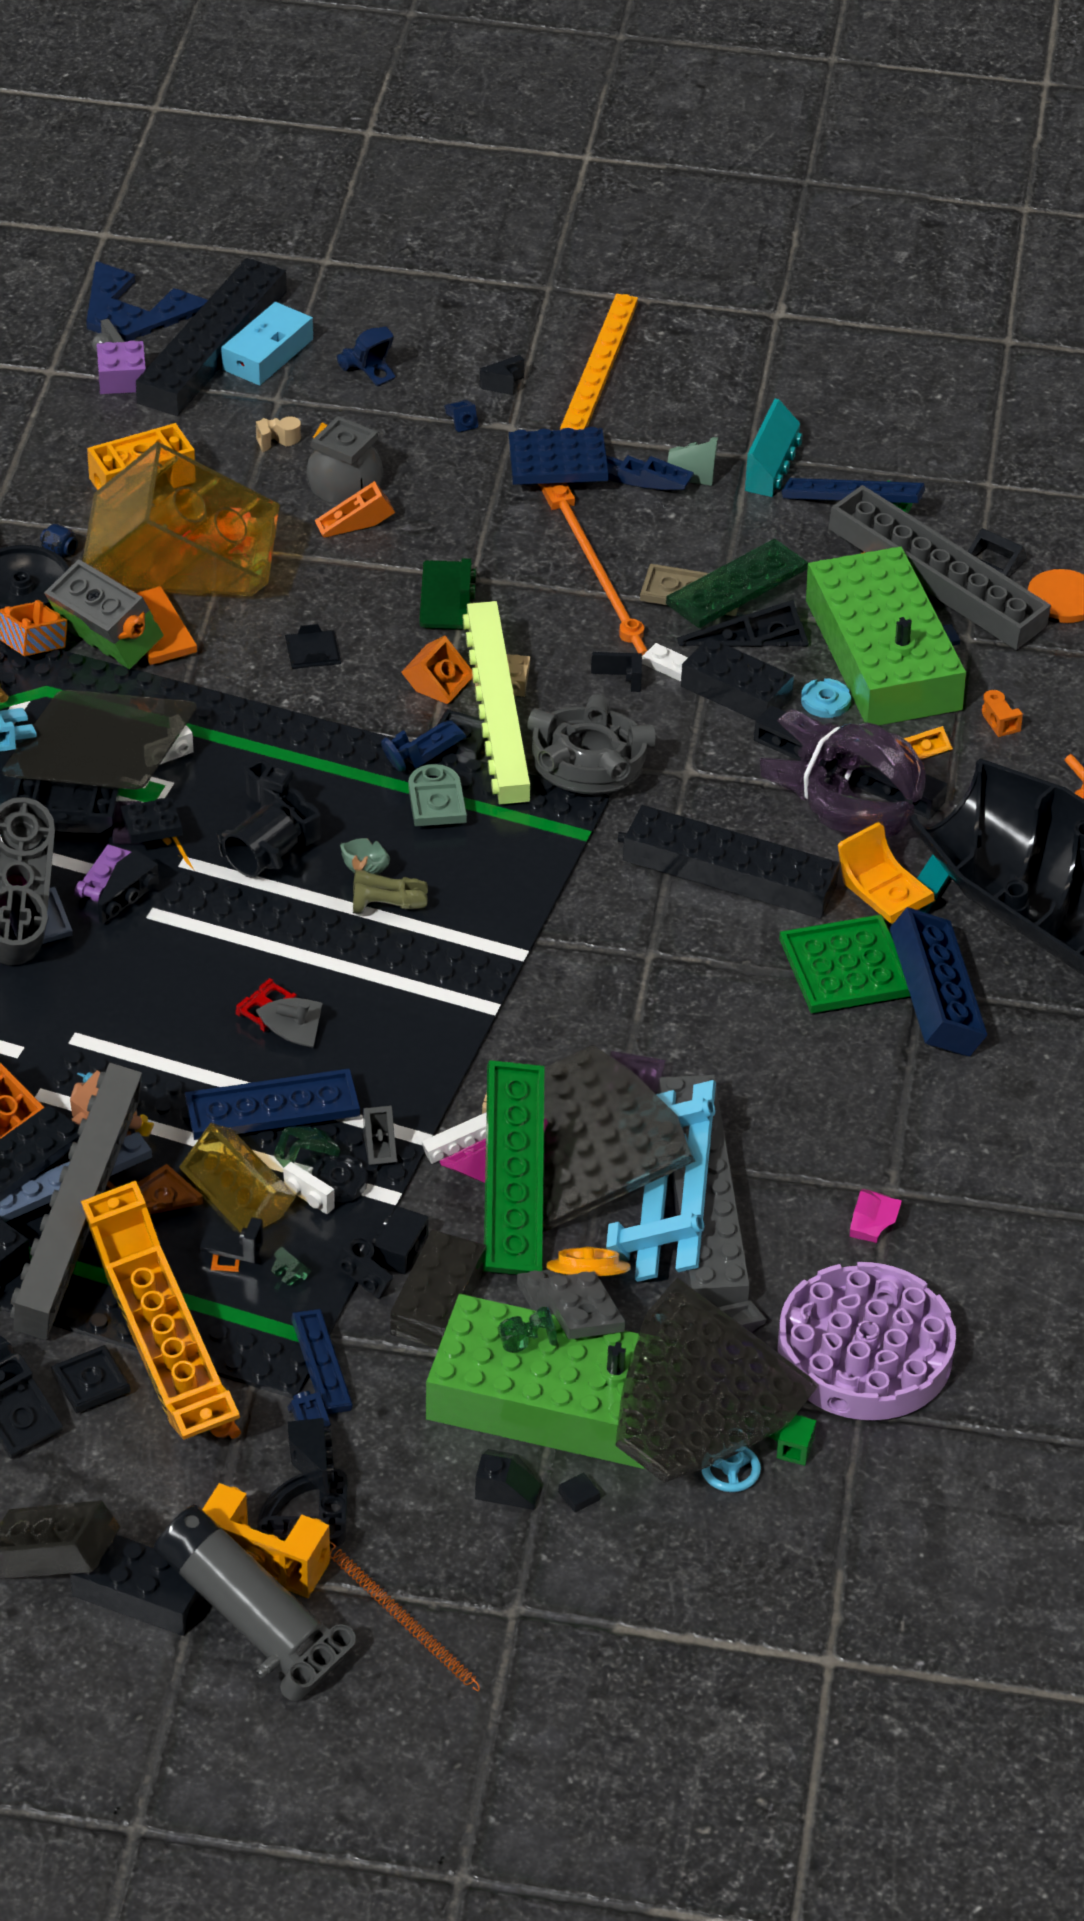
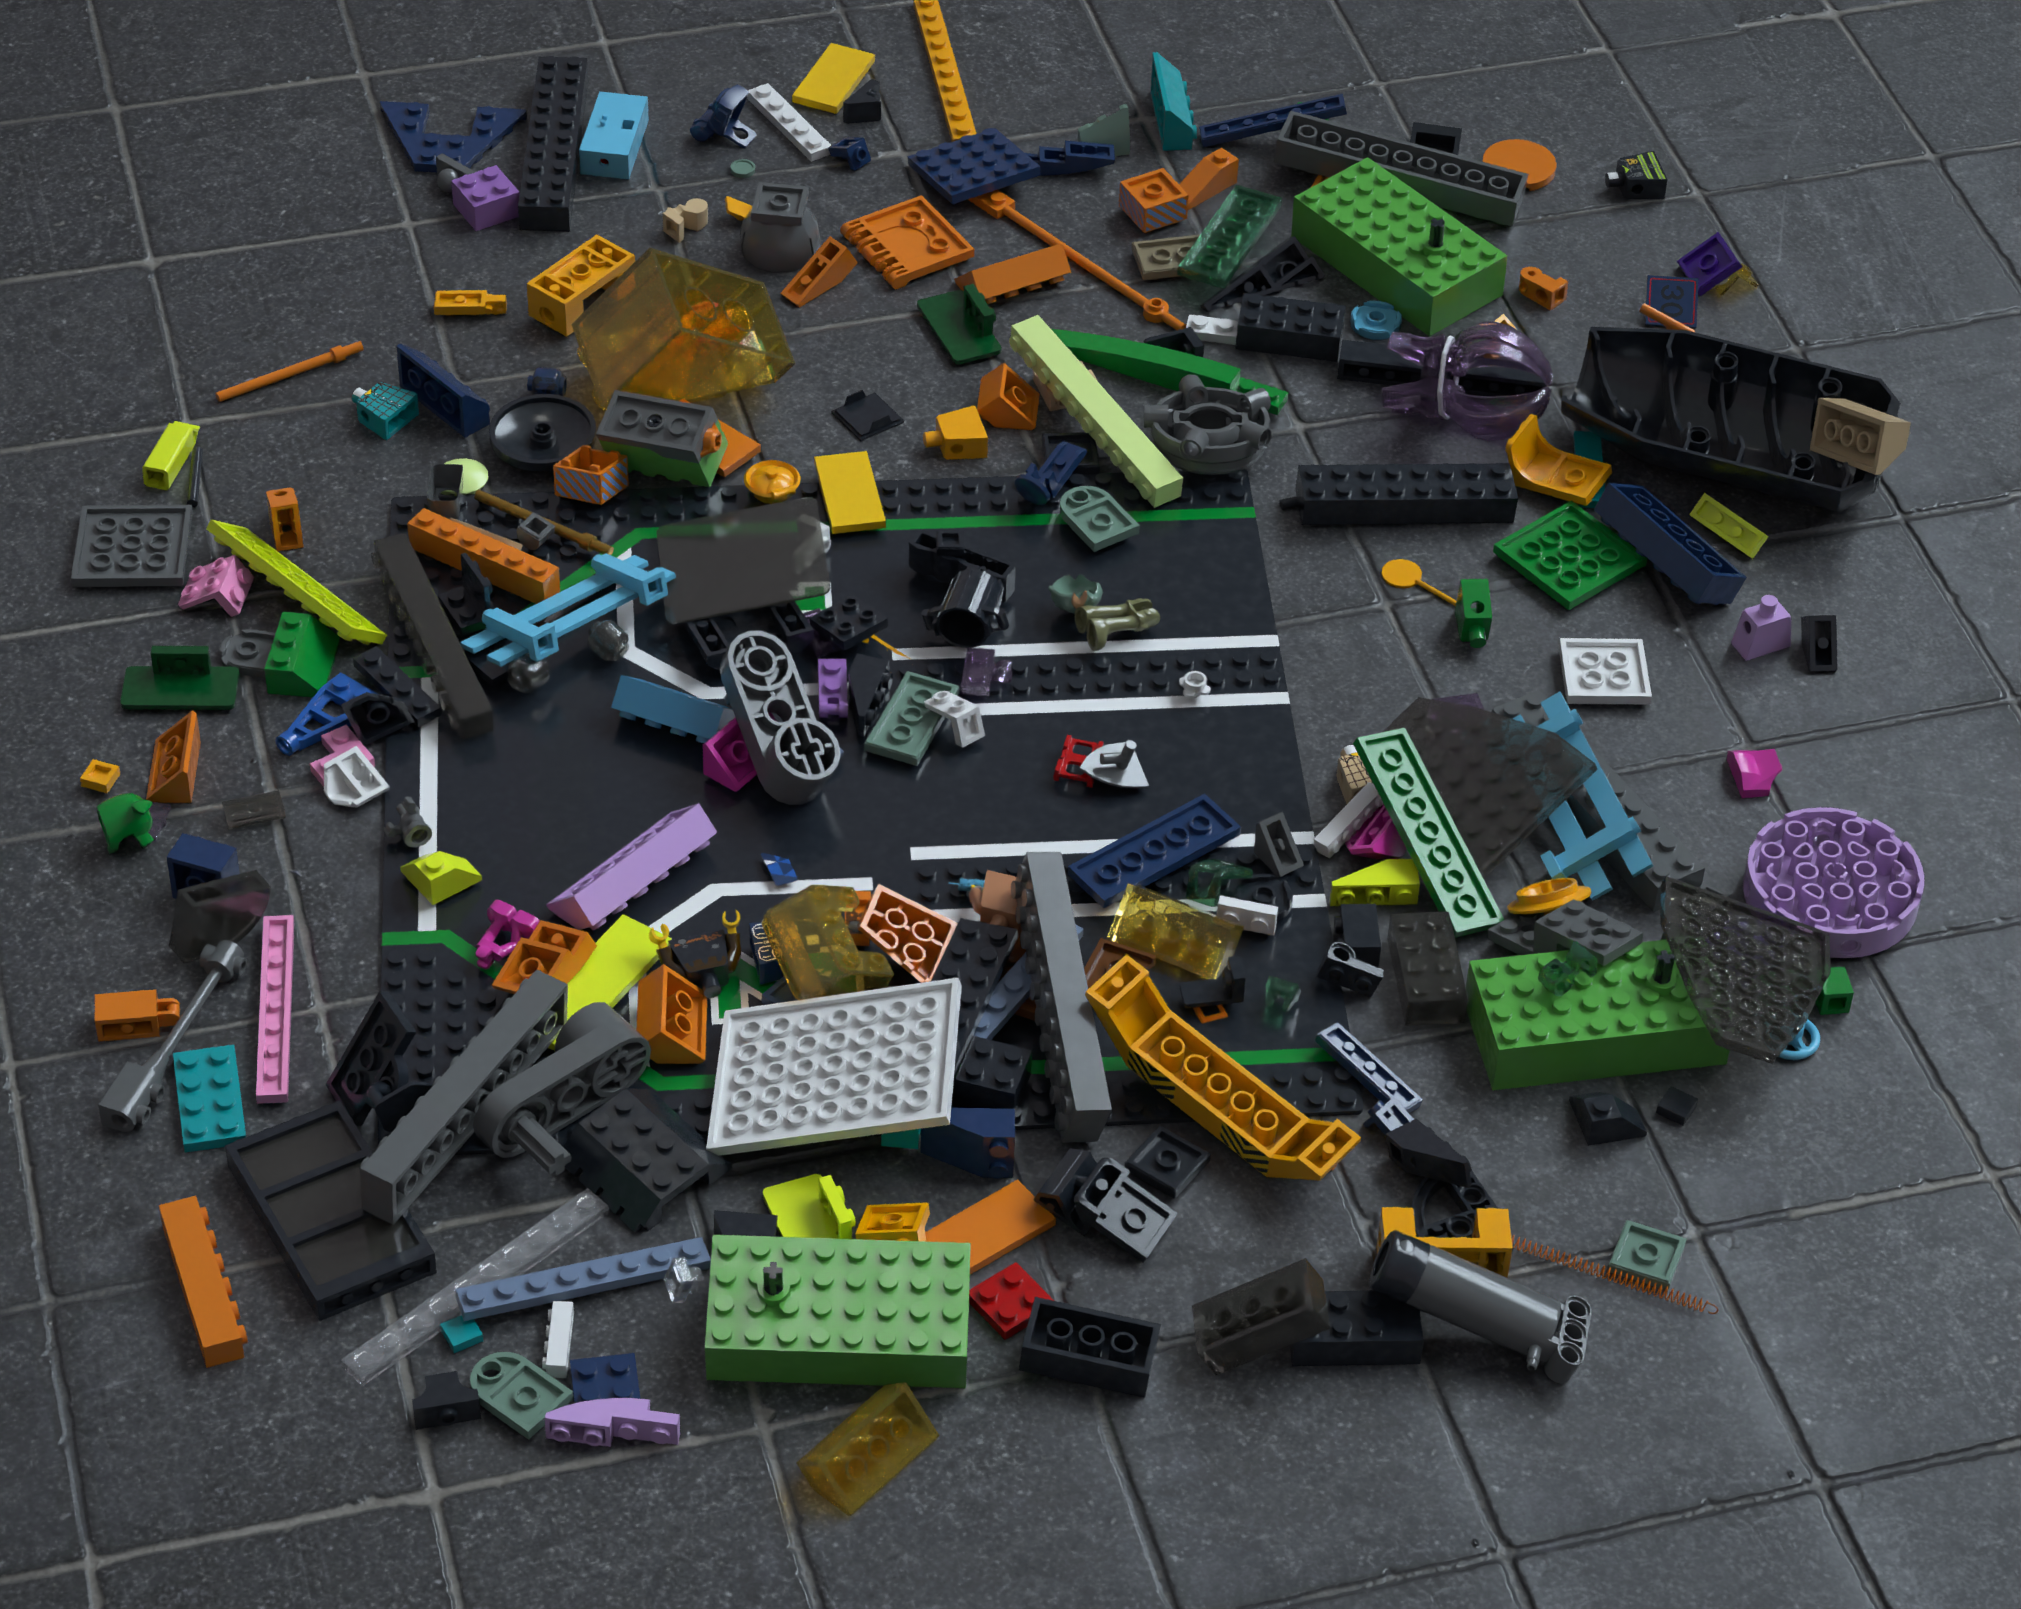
camera: 25 degrees left, 0 degrees up
(45, 453) = (468, 303): none -> light orange hinge
(152, 921) = (906, 724): none -> sand green tile
(179, 679) = (772, 481): none -> light orange piece
(186, 932) = (963, 715): none -> white bracket
(238, 898) = (981, 670): none -> clear purple plate
(241, 709) = (849, 492): none -> yellow tile
(362, 403) = (742, 168): none -> sand green piece
(373, 688) = (959, 435): none -> light orange torso
(415, 970) = (1194, 684): none -> white plate
(429, 373) = (789, 122): none -> white plate
(448, 1200) = (1380, 884): none -> neon yellow slope
(453, 1615) = (1647, 1254): none -> sand green tile
(454, 506) = (907, 241): none -> orange hinge
(496, 344) = (833, 78): none -> yellow tile
(524, 561) = (1018, 273): none -> orange slope
(594, 678) = (1161, 365): none -> green slope
(687, 933) = (1406, 574): none -> light orange piece
(693, 531) = (1153, 200): none -> orange container
(711, 995) = (1473, 623): none -> green torso
(758, 527) = (1210, 177): none -> orange slope
(800, 1079) = (1604, 671): none -> white plate
(972, 1088) = (1762, 629): none -> lavender torso
(1015, 983) = (1728, 525): none -> neon yellow plate
(1021, 1118) = (1820, 642): none -> black slope

